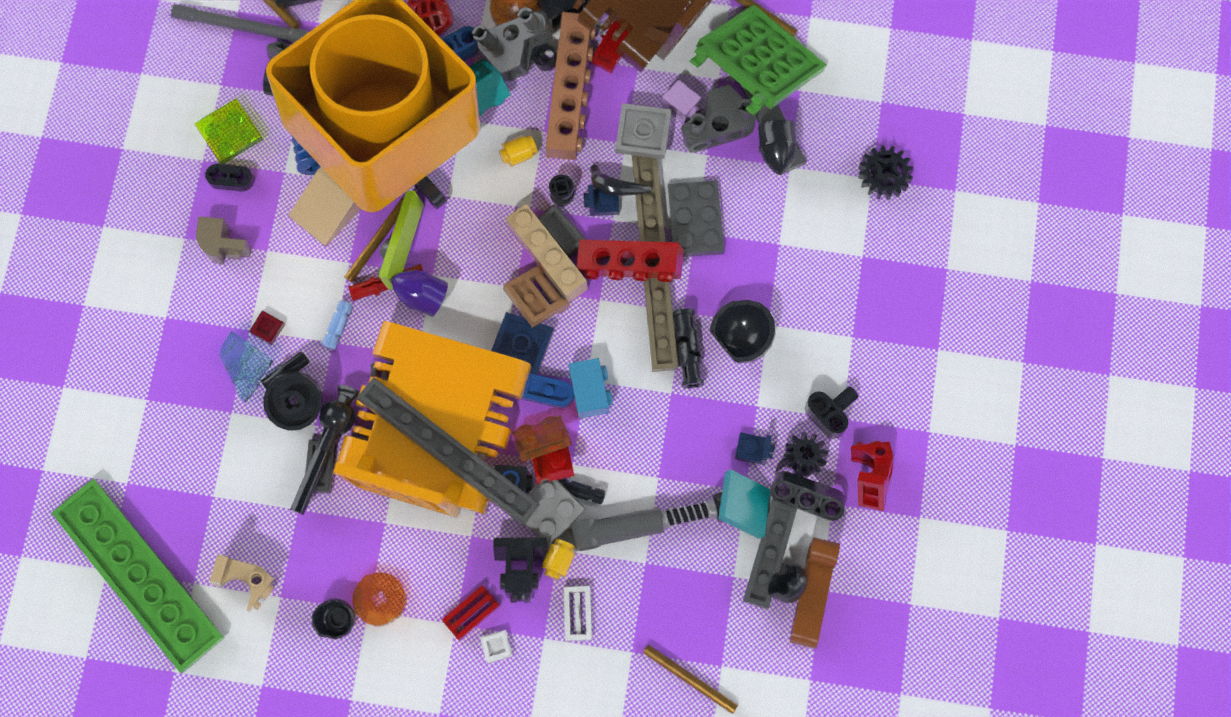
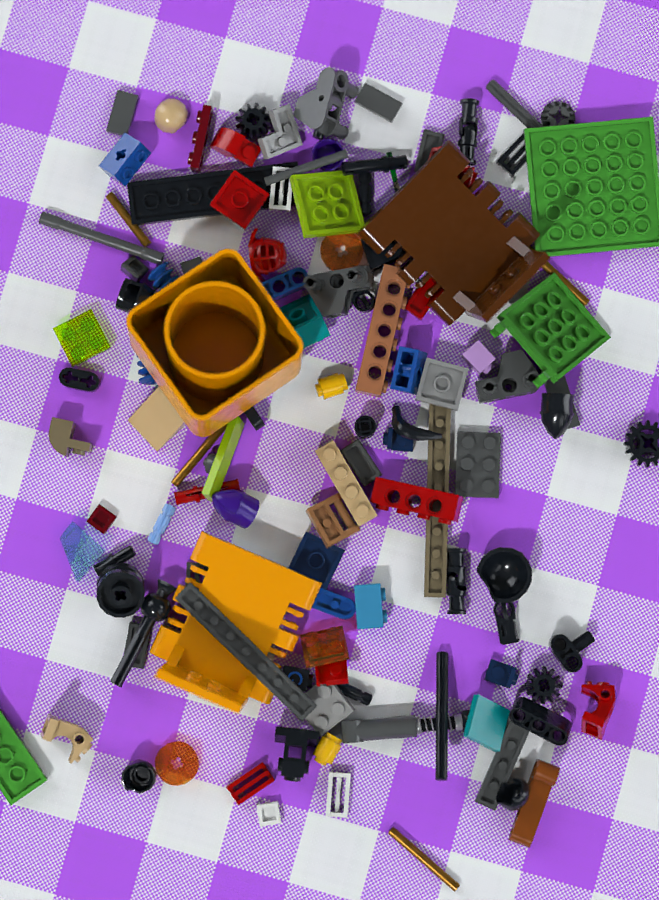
camera: 10 degrees right, 10 degrees up
(603, 121) = (408, 370): none -> blue brick
(690, 503) = (442, 716): none -> black axle
(752, 393) = (506, 627): none -> black piece

